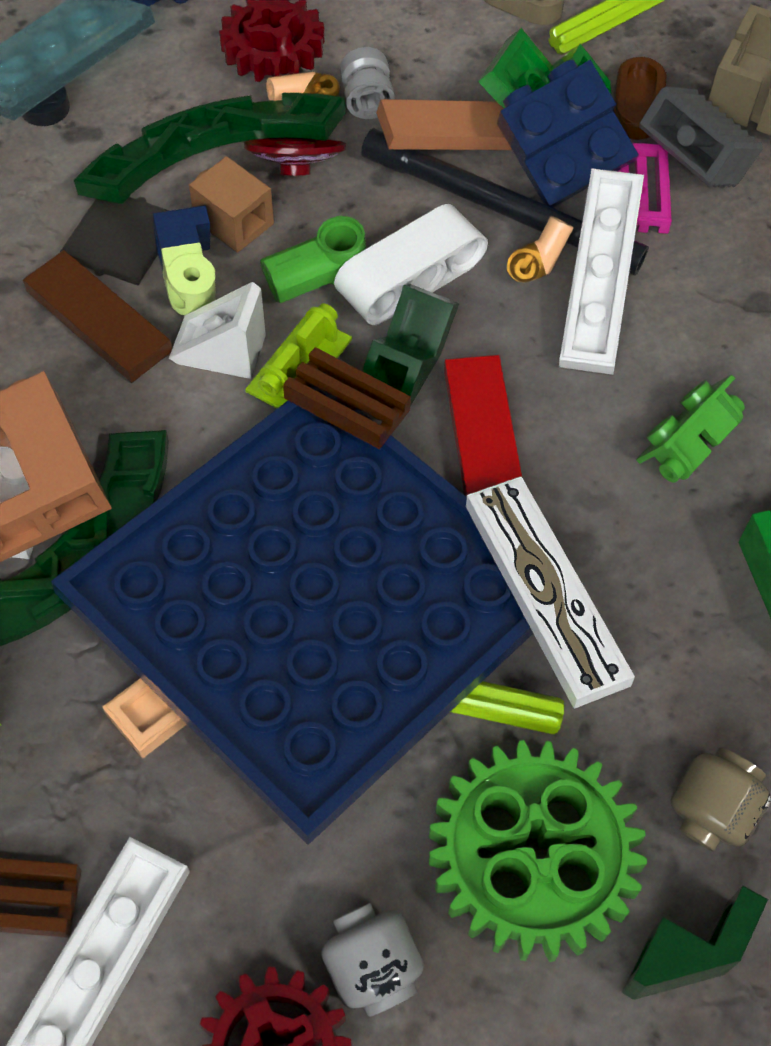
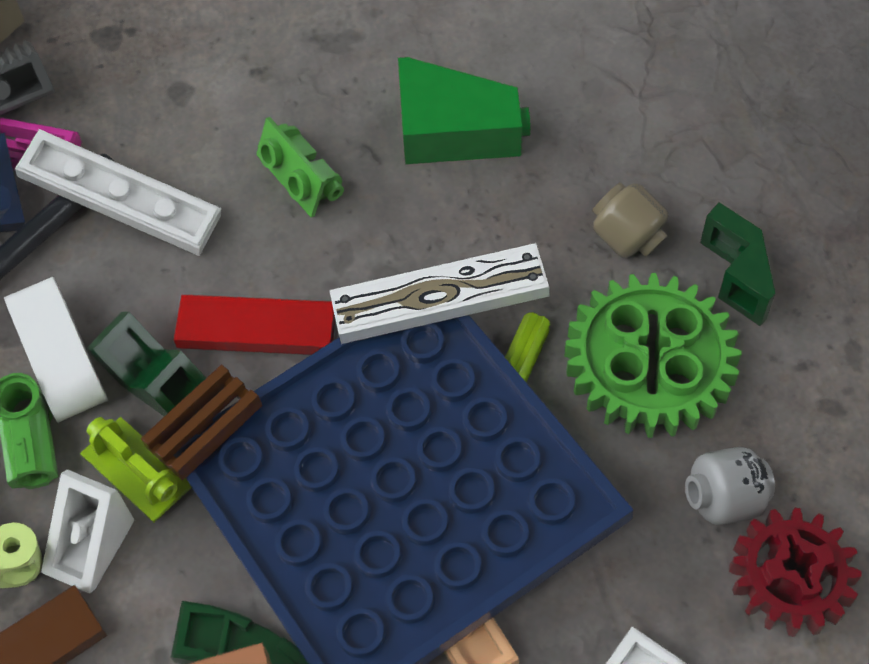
camera: 75 degrees left, 0 degrees up
(541, 255) = (81, 246): arm -> none

